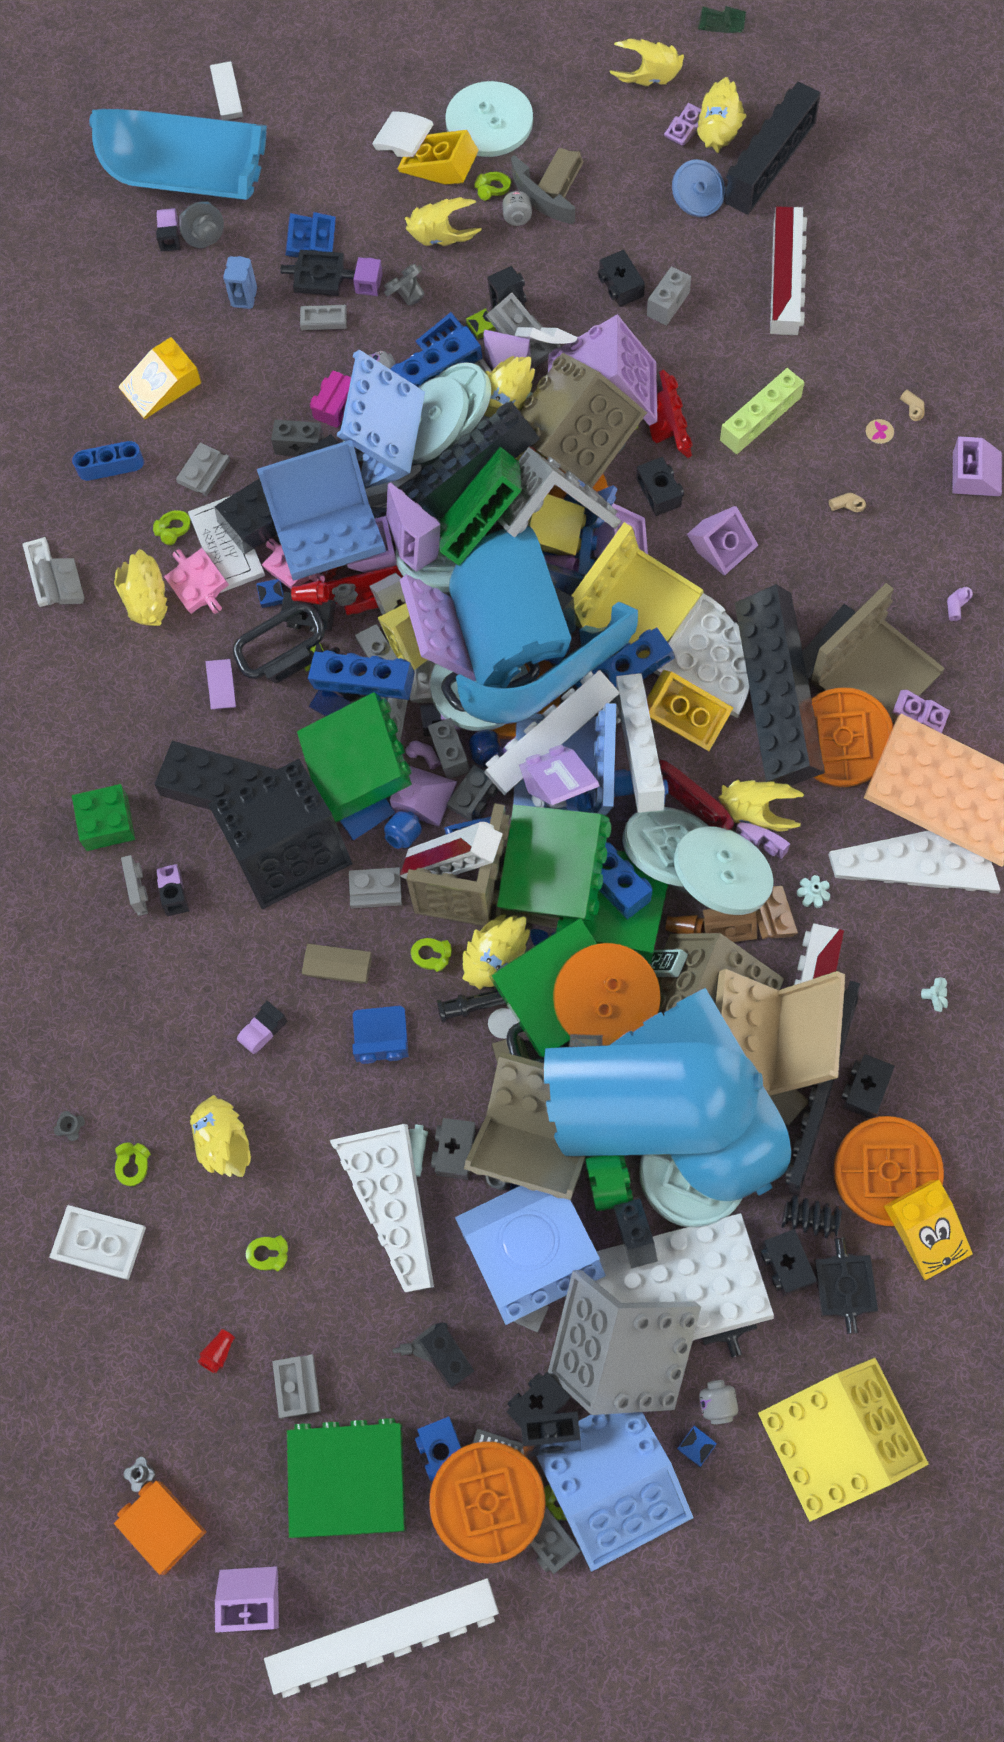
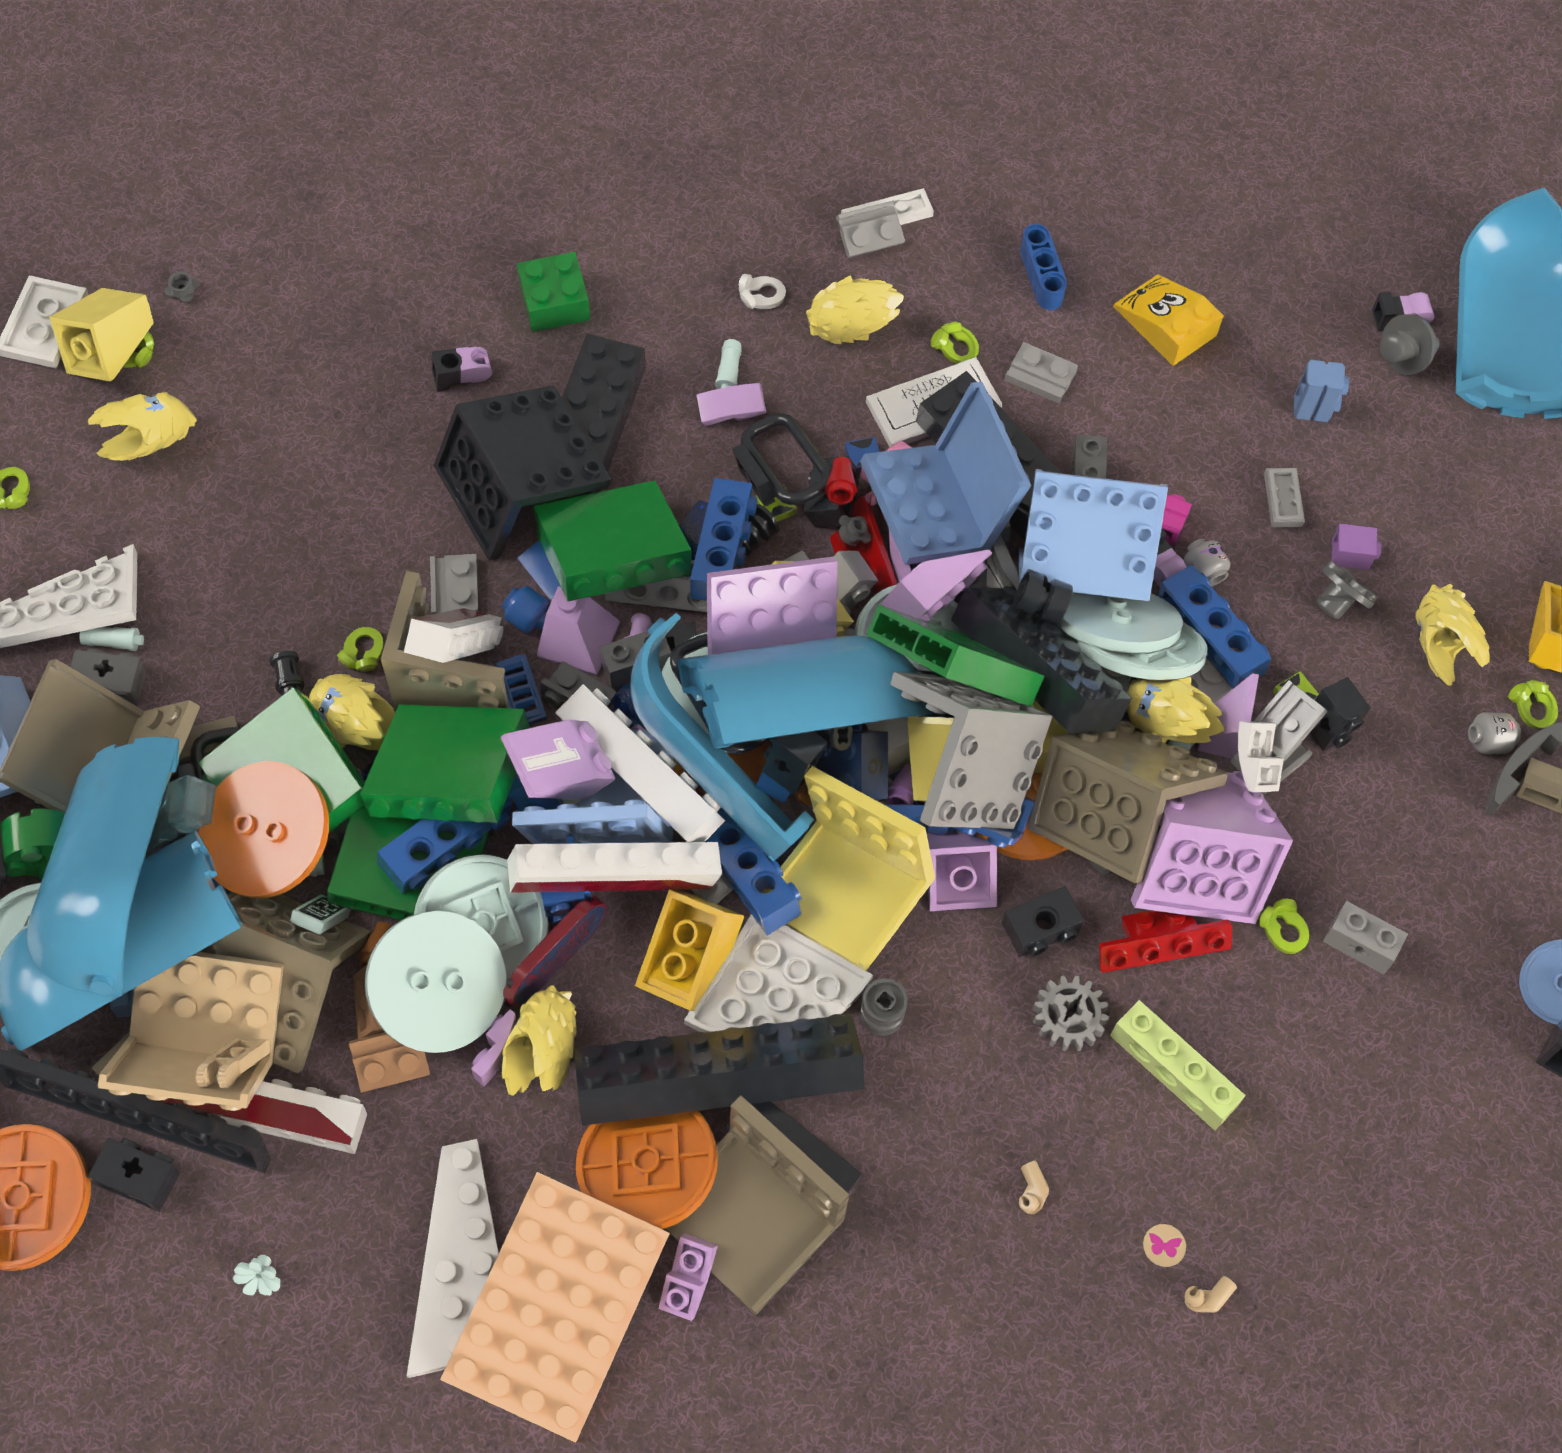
camera: 80 degrees right, 5 degrees down
(120, 667) = (748, 284): none -> white piece
(120, 1180) = (101, 332): none -> light yellow slope
(136, 892) = (462, 326): light grey plate -> none
(184, 687) = (729, 364): none -> light aqua piece
(196, 581) = (875, 371): bright pink plate -> none
(262, 1028) = (279, 469): leg -> none
(310, 233) = (1416, 478): blue slope -> none
(318, 272) = (1355, 487): black plate -> none
(337, 963) = (352, 545): dark tan piece -> none
(380, 1034) = (257, 593): blue bracket -> none
(424, 455) = (1041, 596): none -> black wheel
(436, 330) = (1285, 657): blue slope -> none
(621, 278) = (1404, 867): black brick -> none
(659, 351) = (1288, 911): none -> lime piece
(723, 539) = (957, 1006): lavender slope -> none
(725, 472) = (1080, 1021): none -> light grey gear
(726, 584) = (883, 1007): none -> dark grey wheel
(786, 271) = (1433, 1110): brick -> none
(798, 999) = (231, 1061): none -> tan hinge
(813, 891) = (423, 1124): light aqua plant -> none
(956, 601) = (872, 1341): lavender arm -> none
(976, 467) = (1098, 1383): lavender slope -> none

